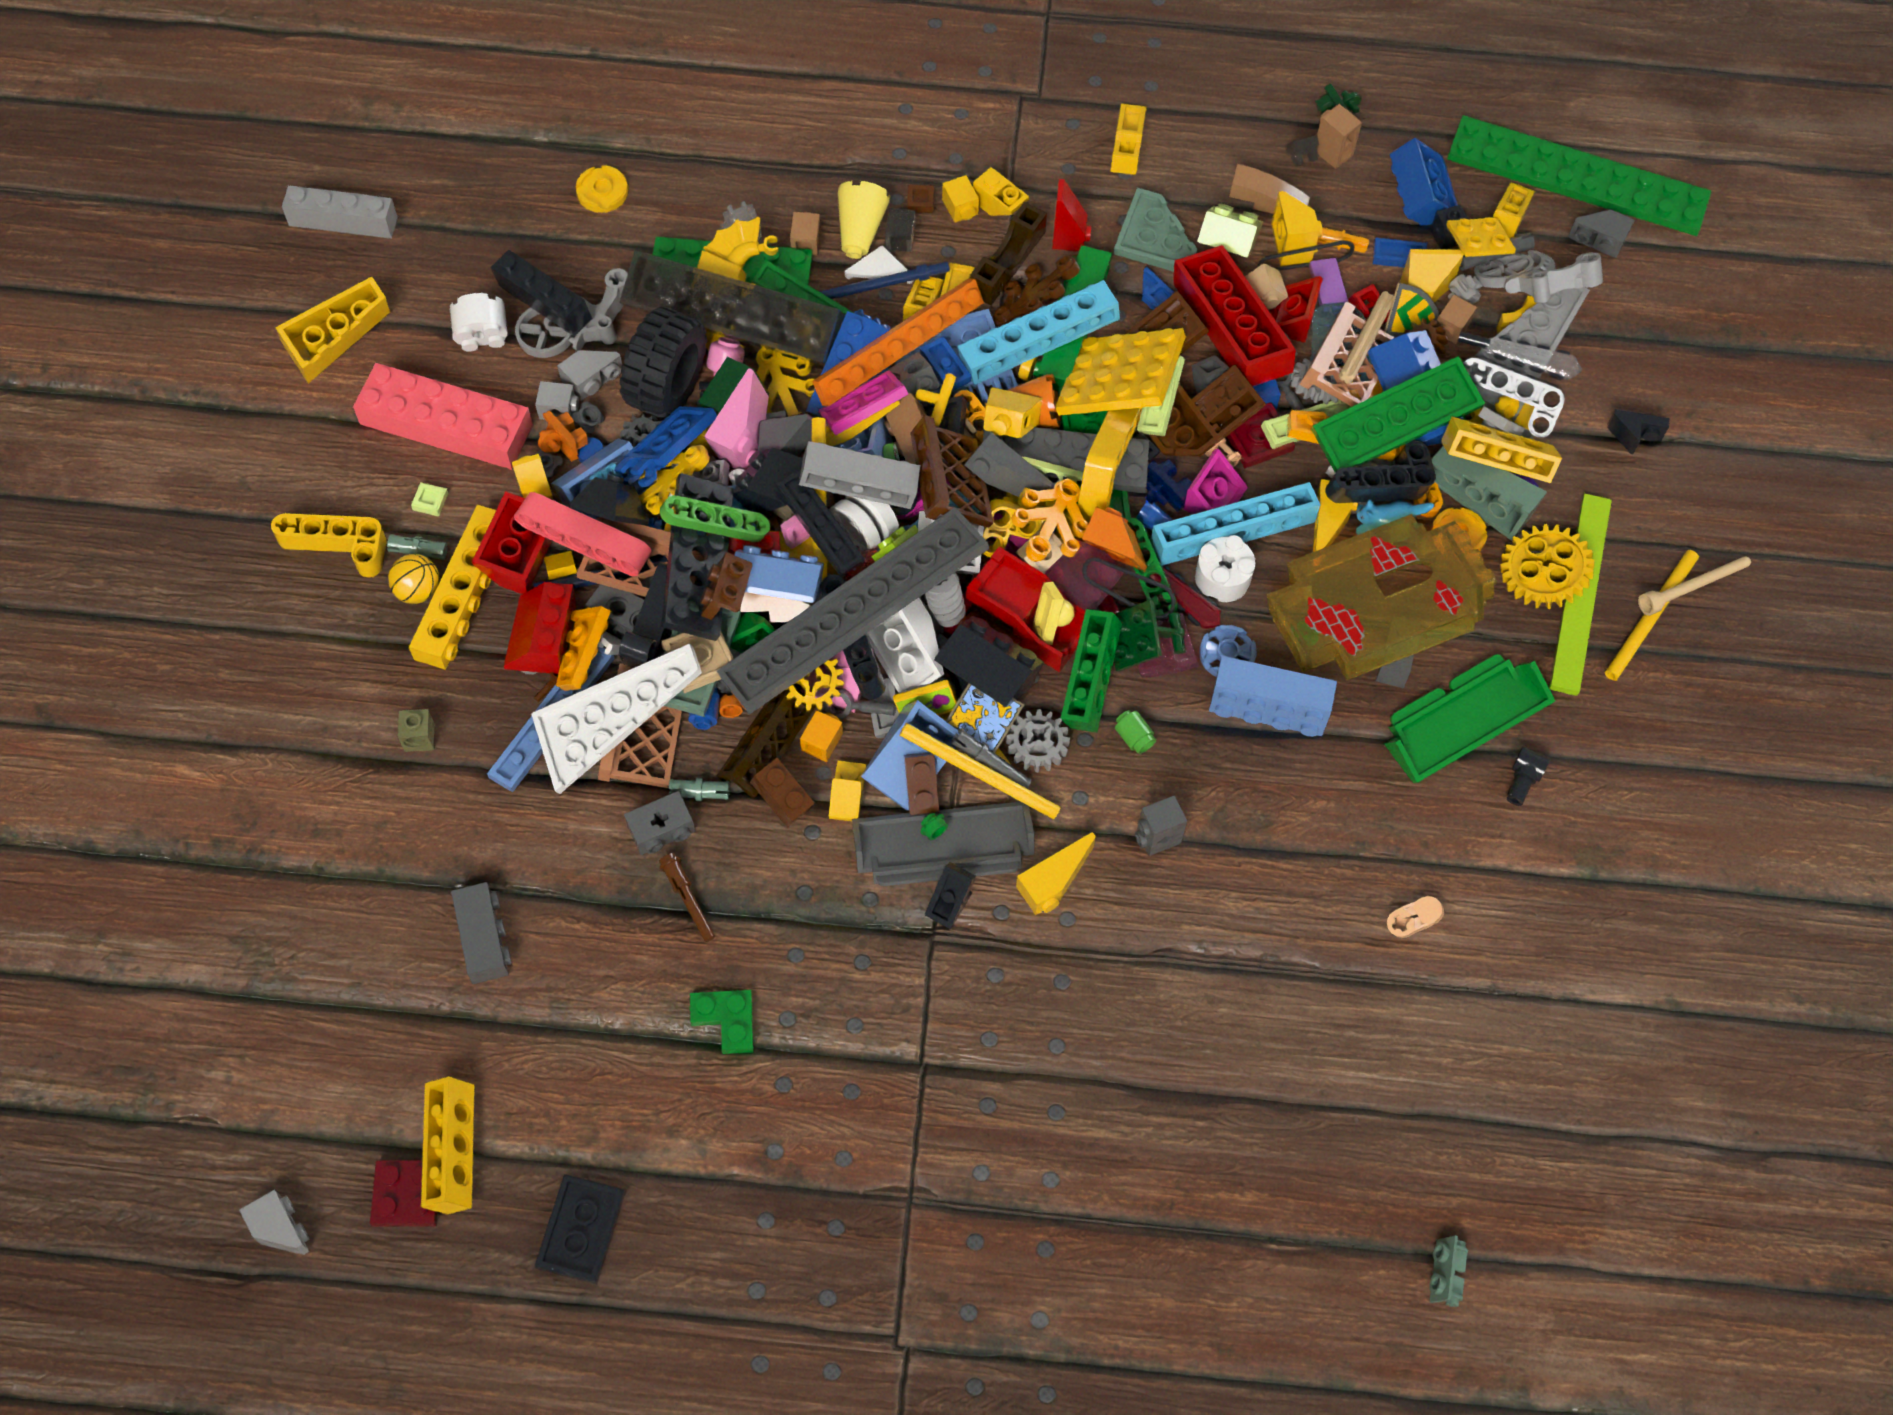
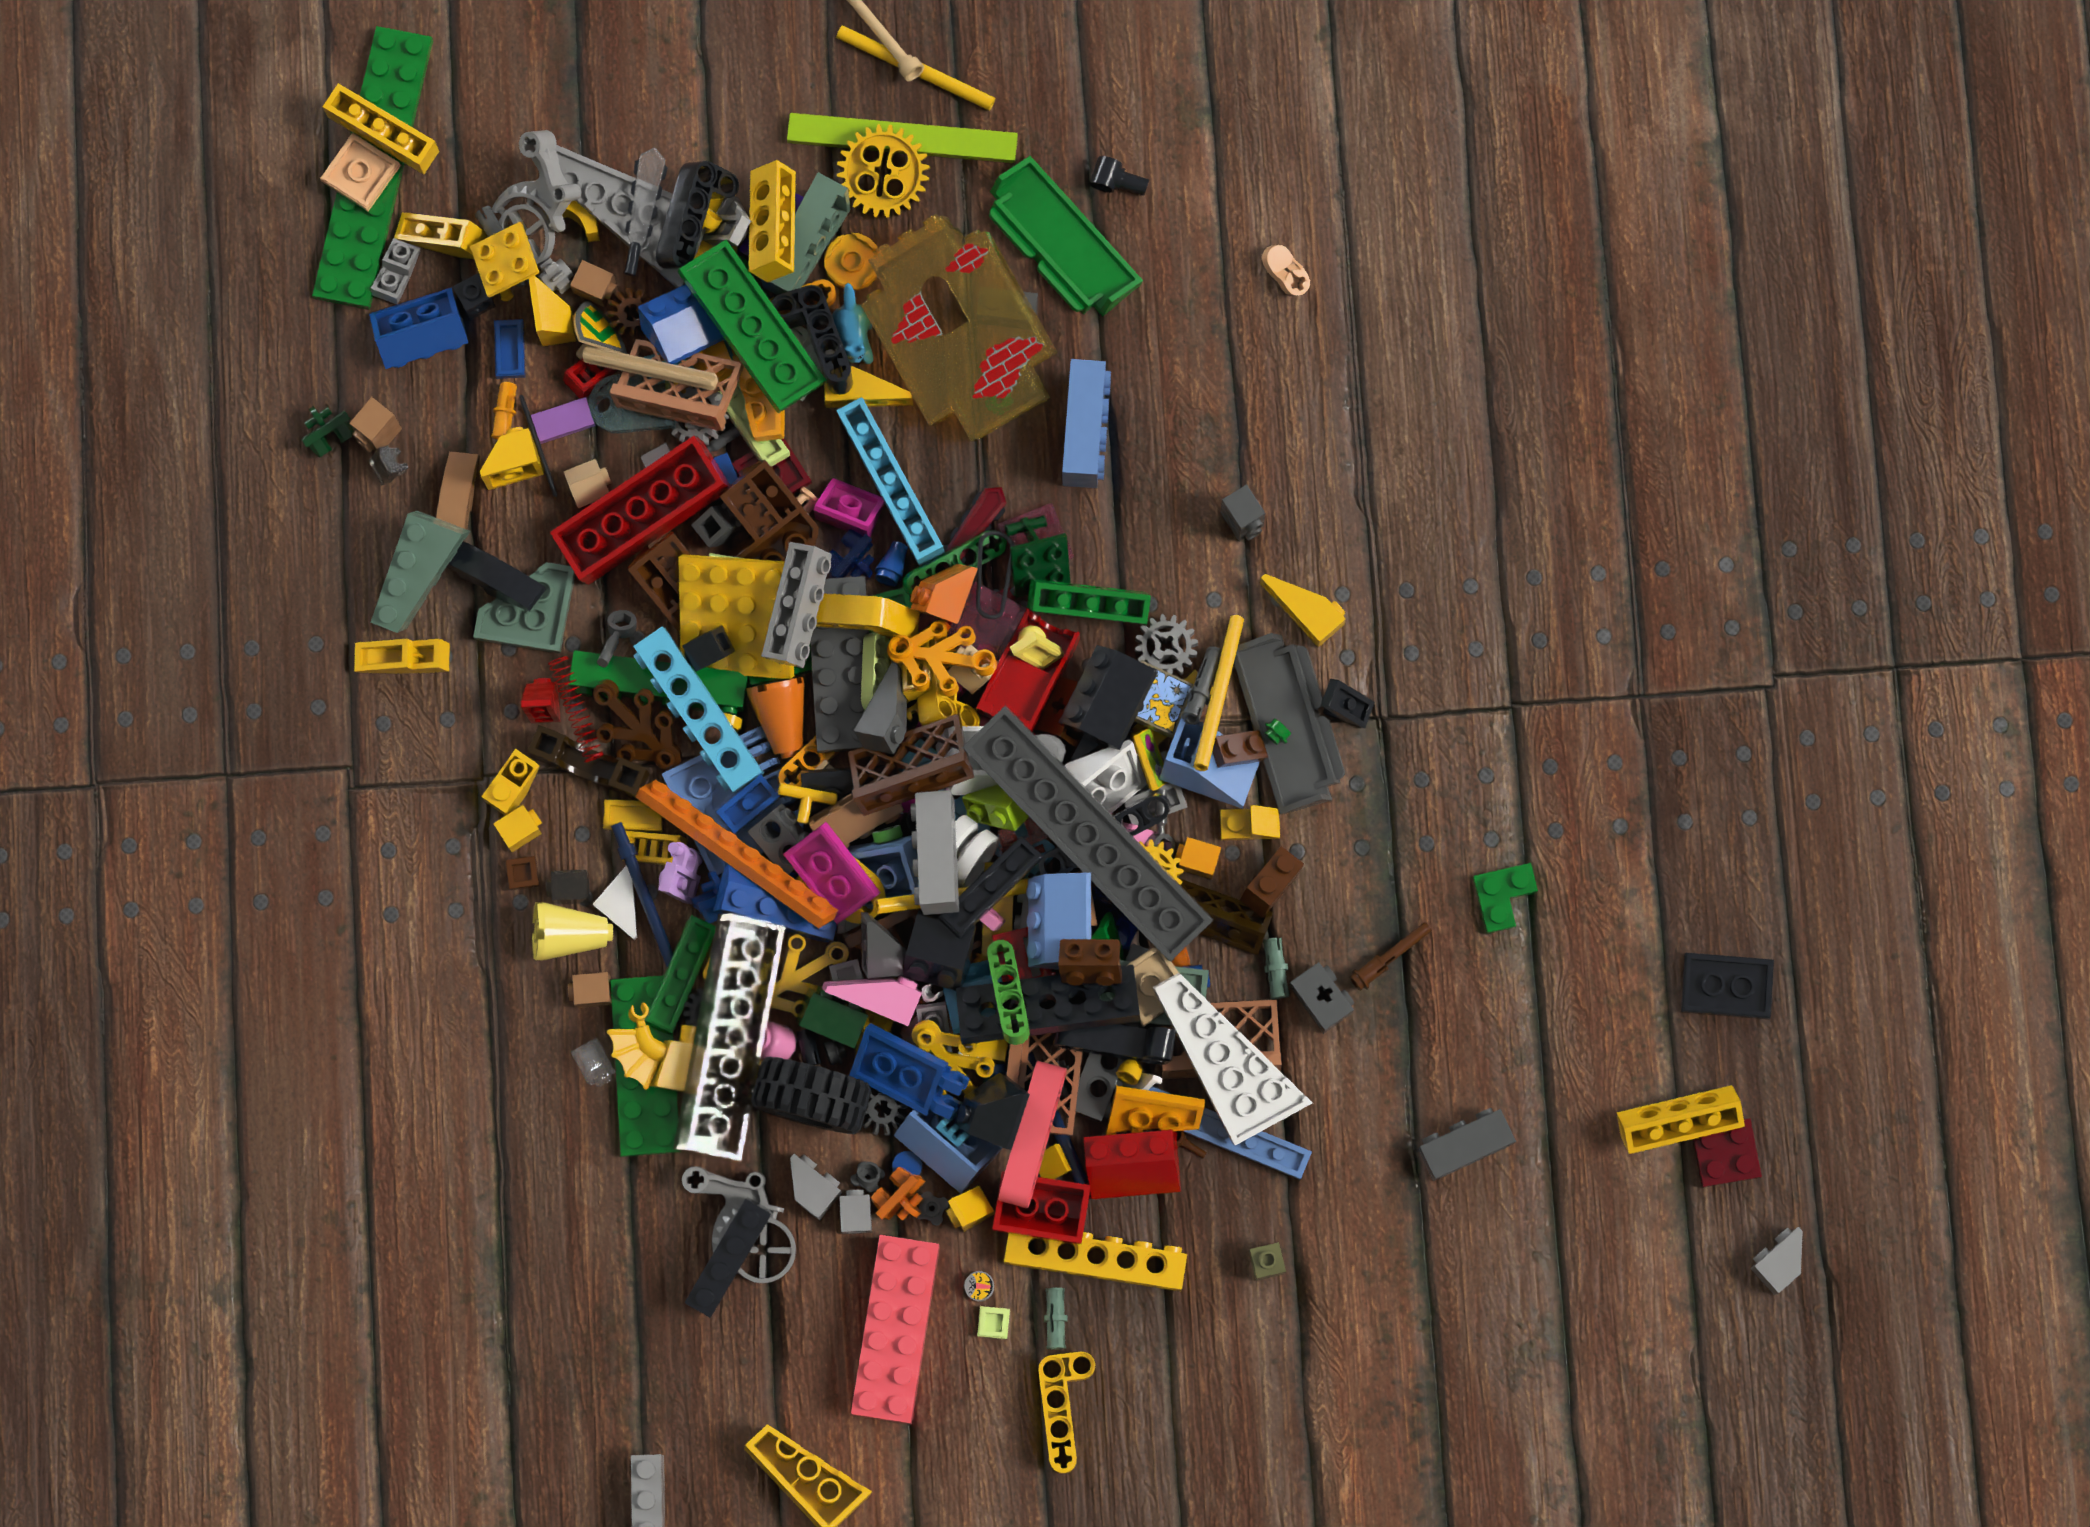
camera: 95 degrees left, 15 degrees up
(413, 578) = (1100, 1306): yellow piece -> none
(465, 492) = (979, 1286): none -> tile
(478, 321) = (775, 1319): white brick -> none
(601, 189) = (561, 1232): yellow tile -> none
(618, 635) = (1129, 1071): none -> yellow hinge
(887, 297) = (680, 876): none -> lavender plate
(1011, 413) = (812, 723): yellow torso -> none
(1061, 243) = (579, 719): none -> red piece
(1093, 343) = (708, 648): none -> black brick
(1114, 283) = (617, 632): none -> dark grey piece
(1119, 401) = (797, 605): none -> light grey brick
(1135, 731) = (1139, 553): bright green brick -> none
(1154, 289) = (604, 600): blue tile -> none
(1192, 203) = (496, 577): none -> black slope
(1203, 143) = (416, 567): none -> sand green wedge
(1225, 568) = (949, 472): white brick -> none
(1227, 646) = (1029, 476): medium blue piece -> none
(1230, 229) = (514, 529): yellowish green slope -> none
(1297, 310) = (611, 447): red slope -> none
(1449, 1257) = (1604, 216): sand green hinge -> none
(1486, 182) = (395, 271): none -> light grey slope
(1573, 157) = (360, 172): none -> light nougat tile
(1602, 231) = (452, 133): dark grey slope -> none
(1612, 167) = (381, 128): none -> yellow brick
(1631, 426) = (702, 97): black slope -> none

